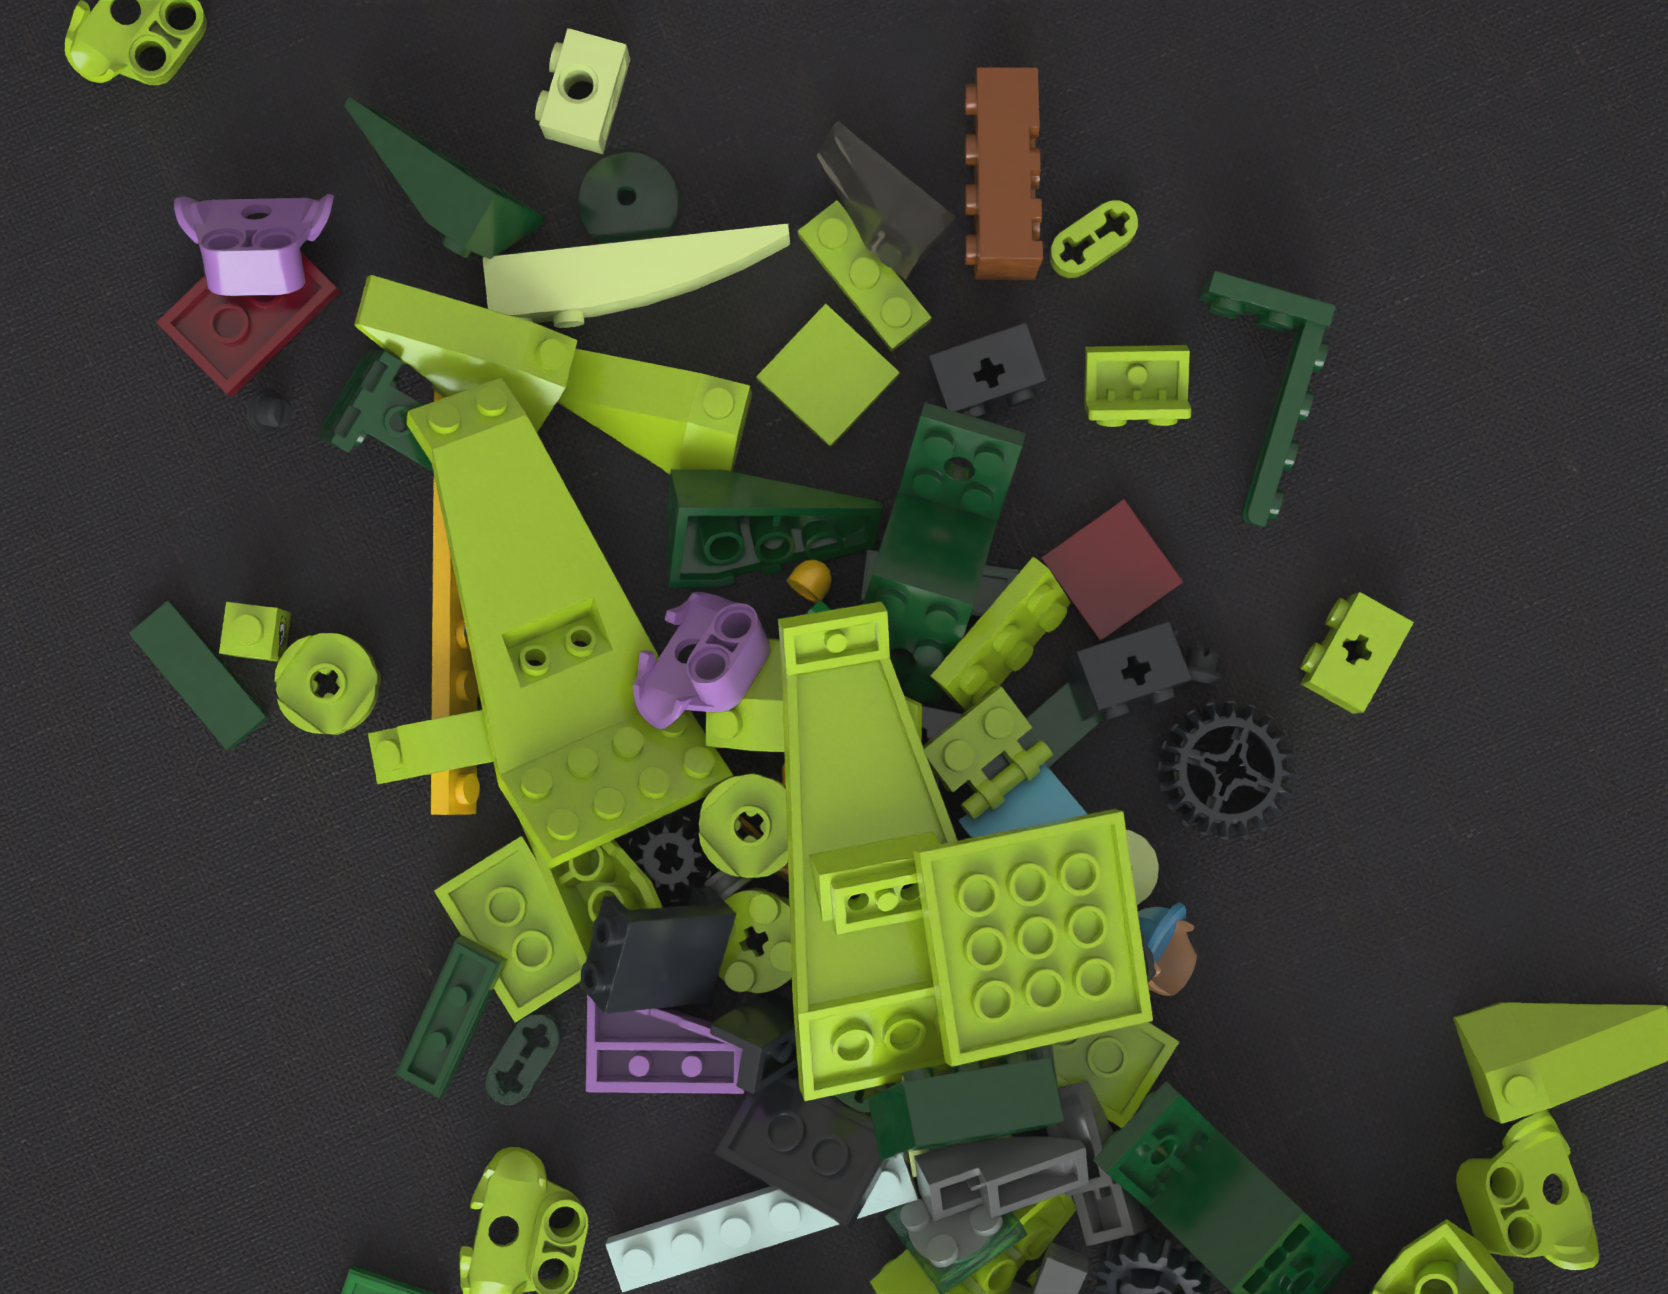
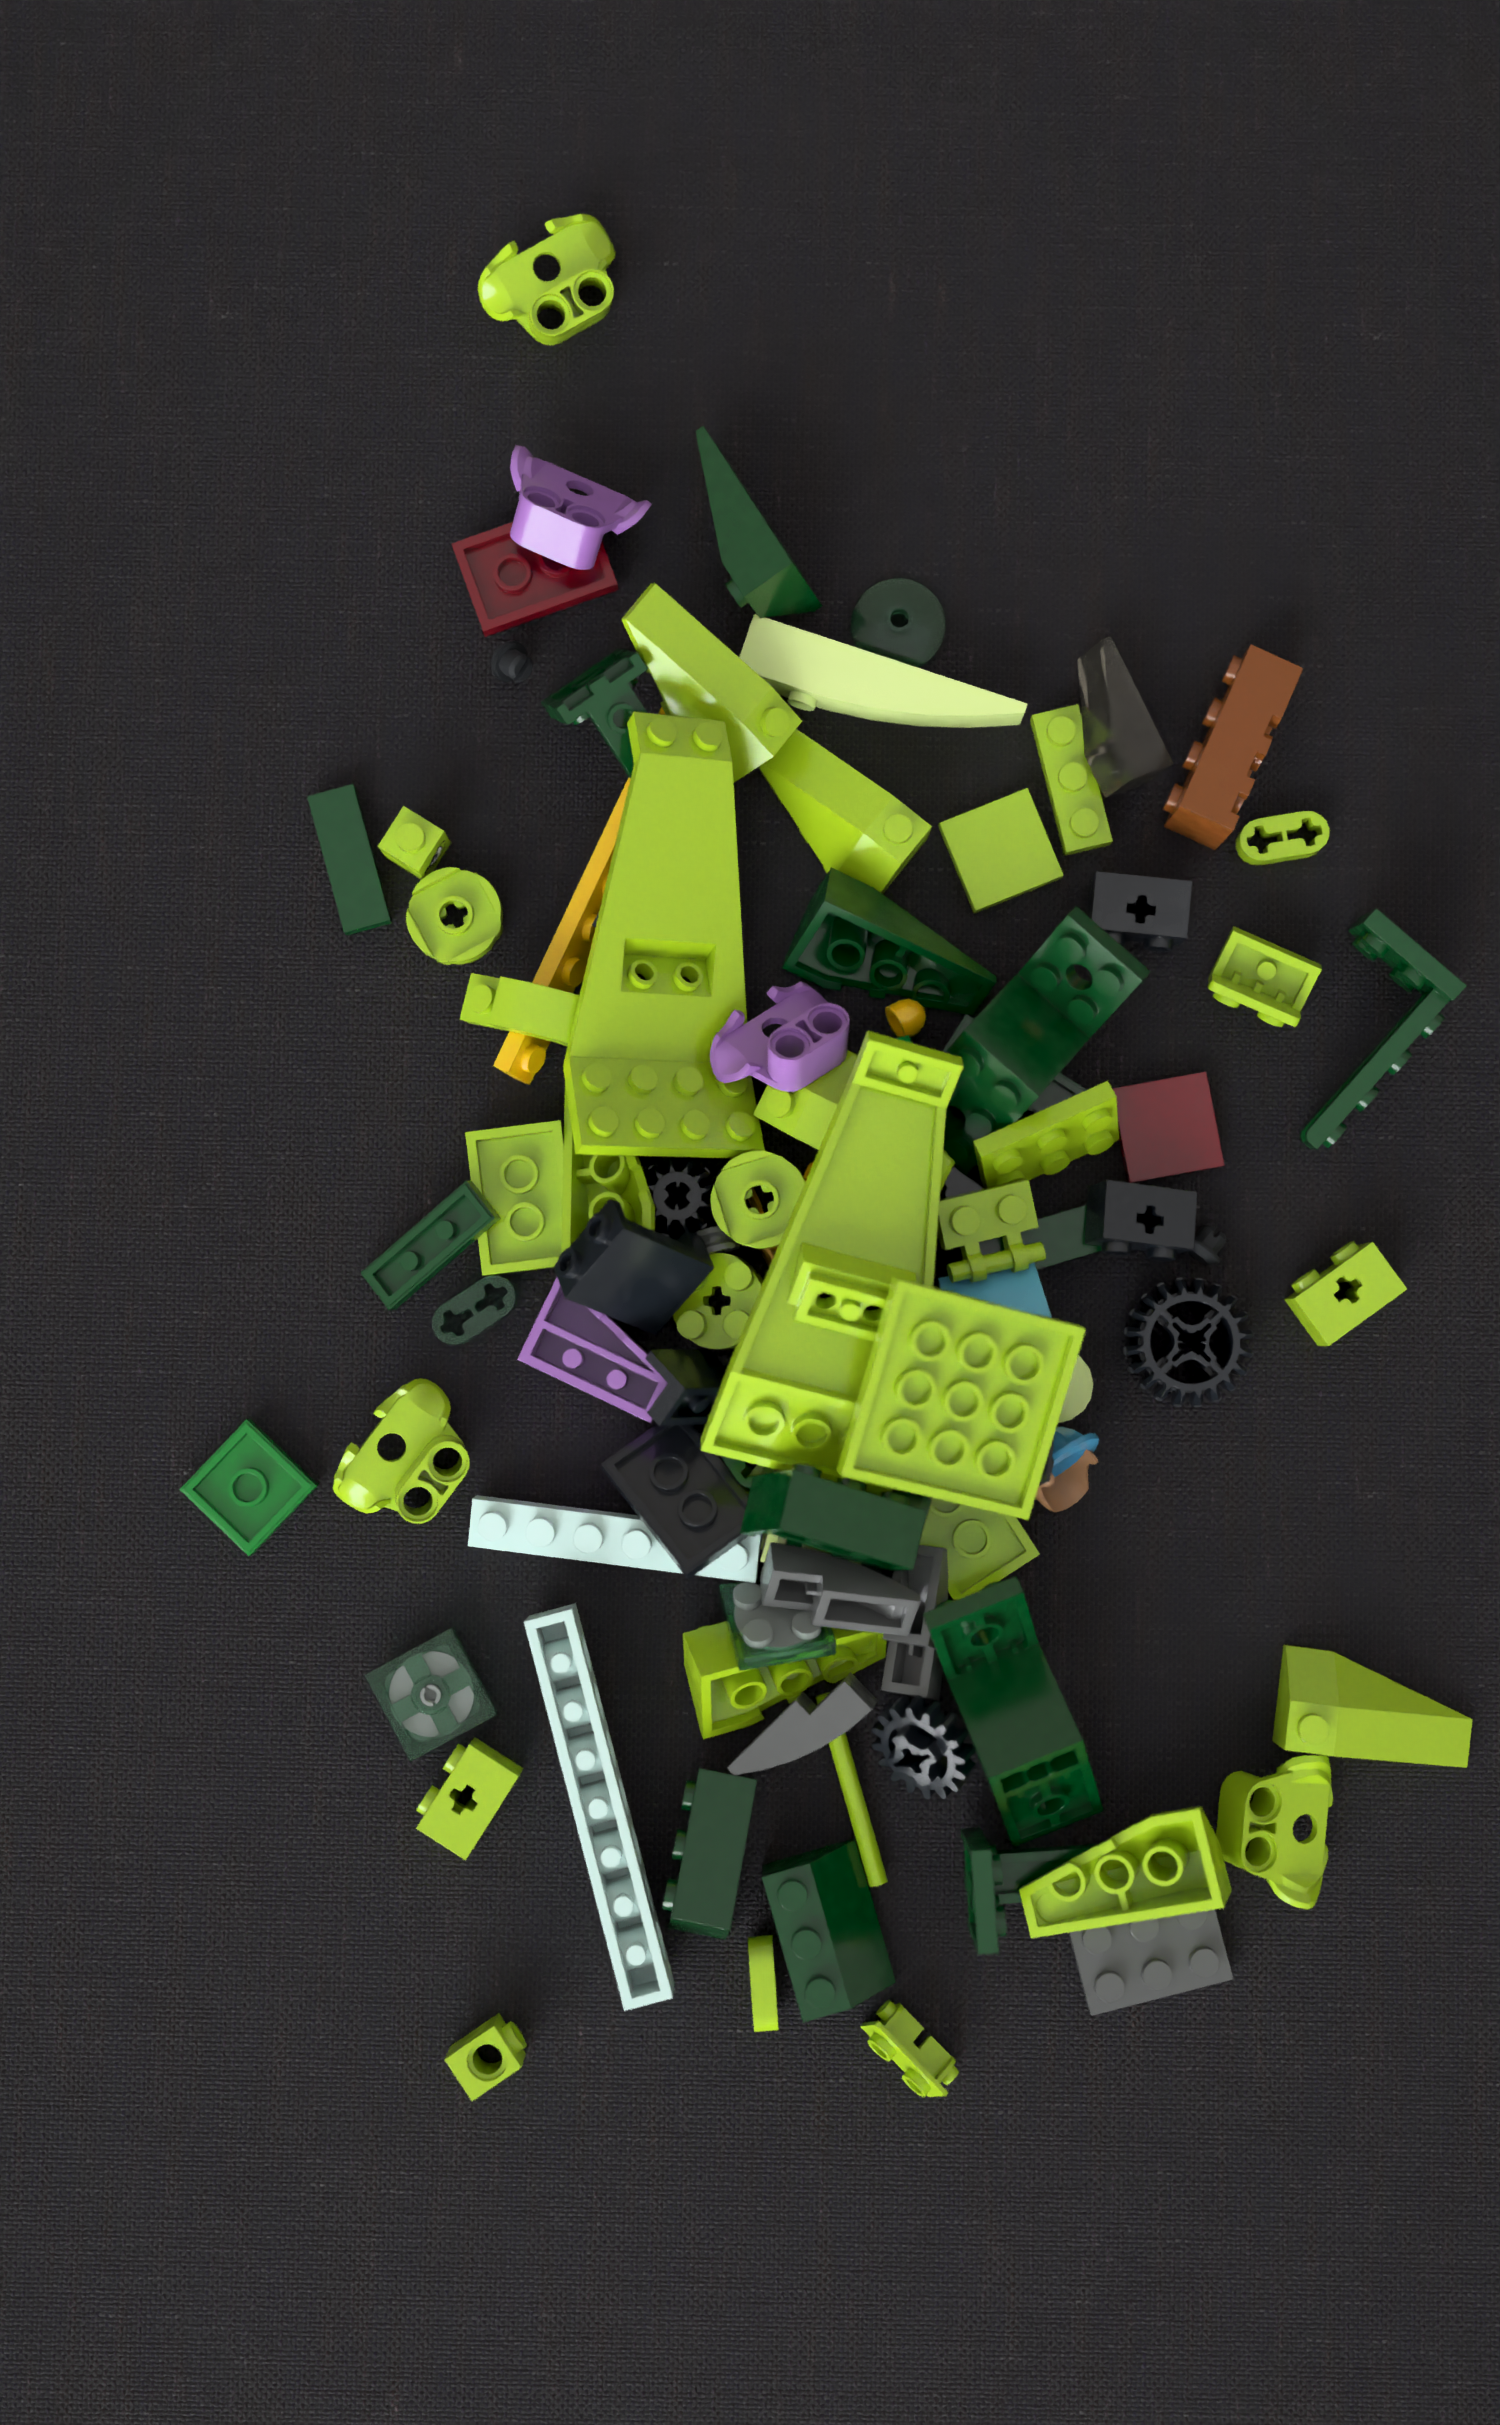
camera: 25 degrees right, 0 degrees up
(588, 120) = (894, 538): yellowish green brick -> none

